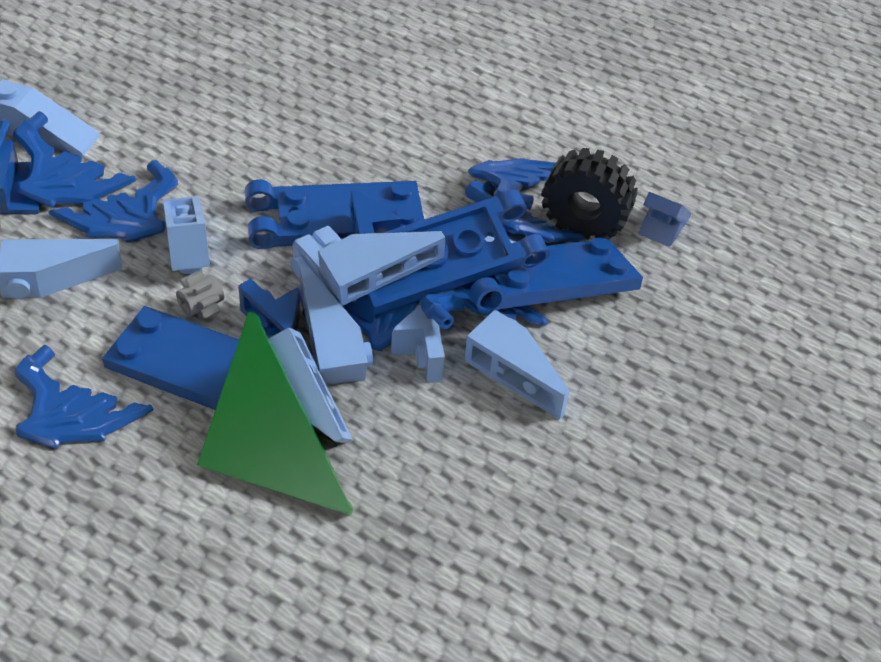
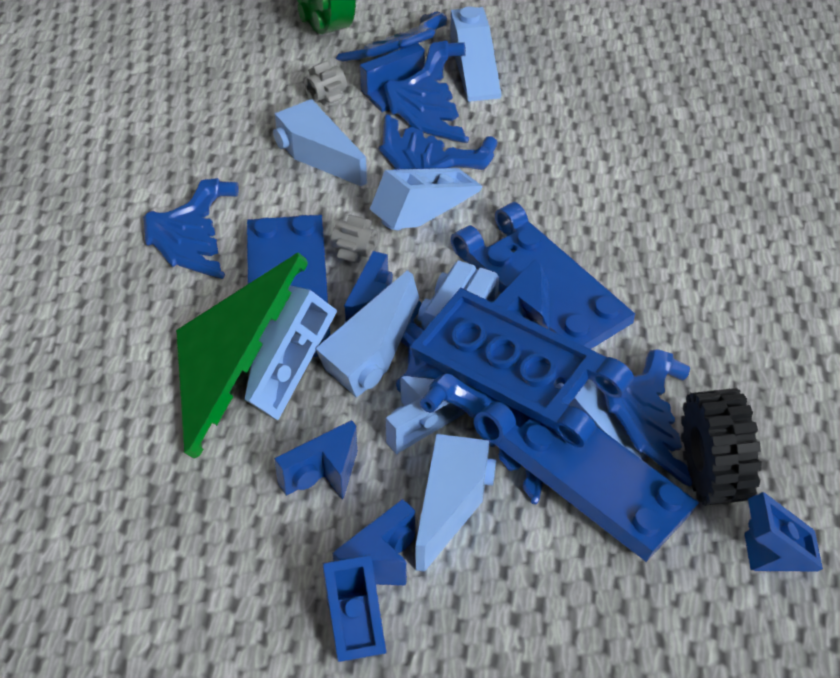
camera: 65 degrees right, 0 degrees up
(373, 260) = (436, 307): light blue slope -> none
(435, 417) = (325, 456): none -> blue slope
(513, 175) = (708, 372): blue animal -> none
(540, 429) = (384, 541): none -> blue slope
(590, 458) = (354, 608): none -> blue slope

